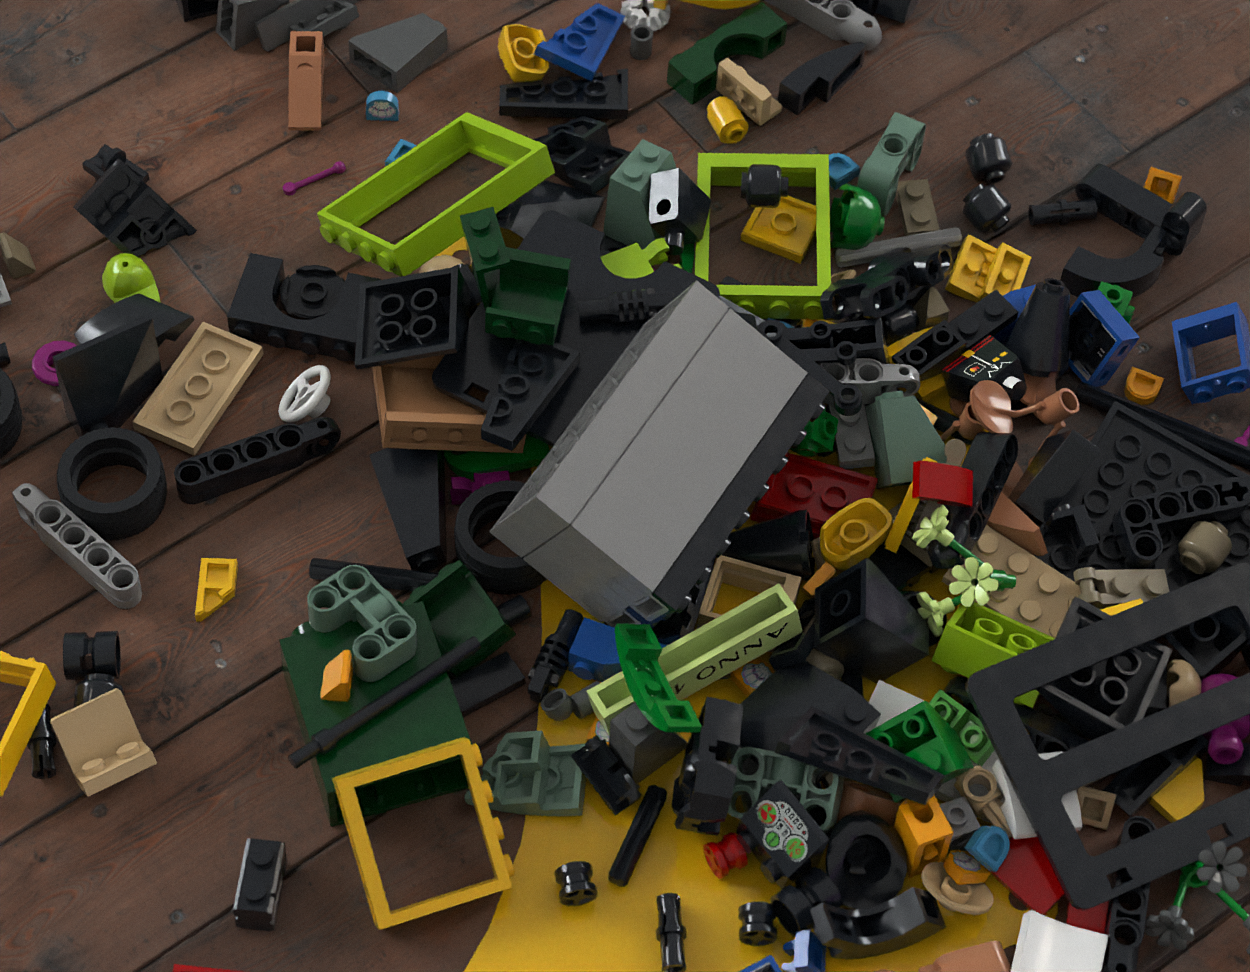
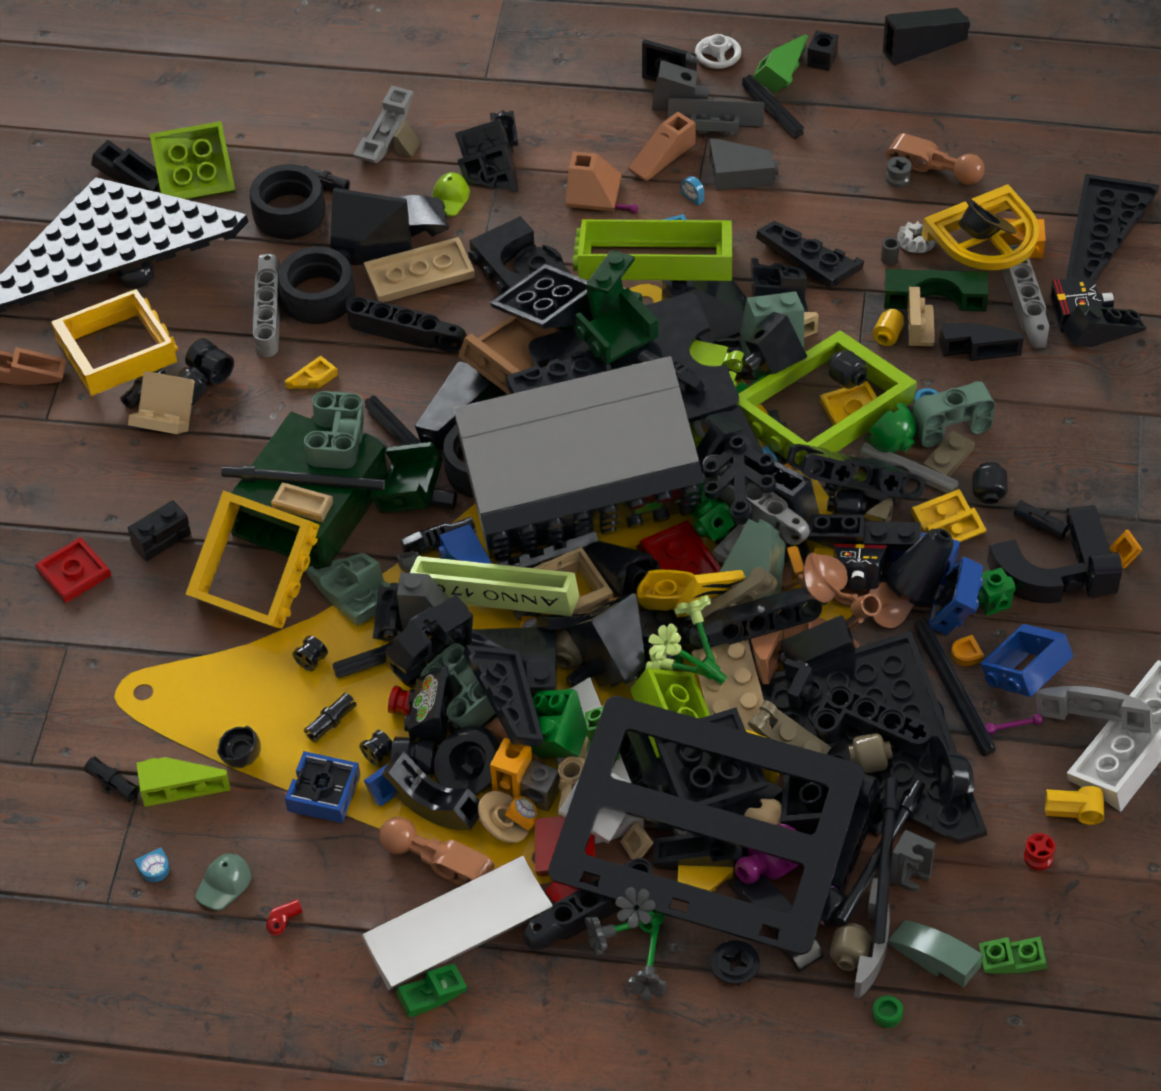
camera: 50 degrees right, 5 degrees down
(274, 169) = (592, 182): none -> nougat slope
(309, 398) = (466, 312): white piece -> none
(338, 678) = (292, 450): light orange slope -> none
(414, 728) = (302, 502): none -> tan tile
(487, 683) = (387, 523): black tile -> none
(517, 51) = (807, 210): yellow piece -> none
(583, 43) = (849, 230): blue wing -> none
(647, 683) = (444, 567): green slope -> none
(942, 483) = (724, 586): red slope -> none
(988, 158) = (1028, 456): black head -> none
(989, 846) = (541, 806): dark azure tile -> none

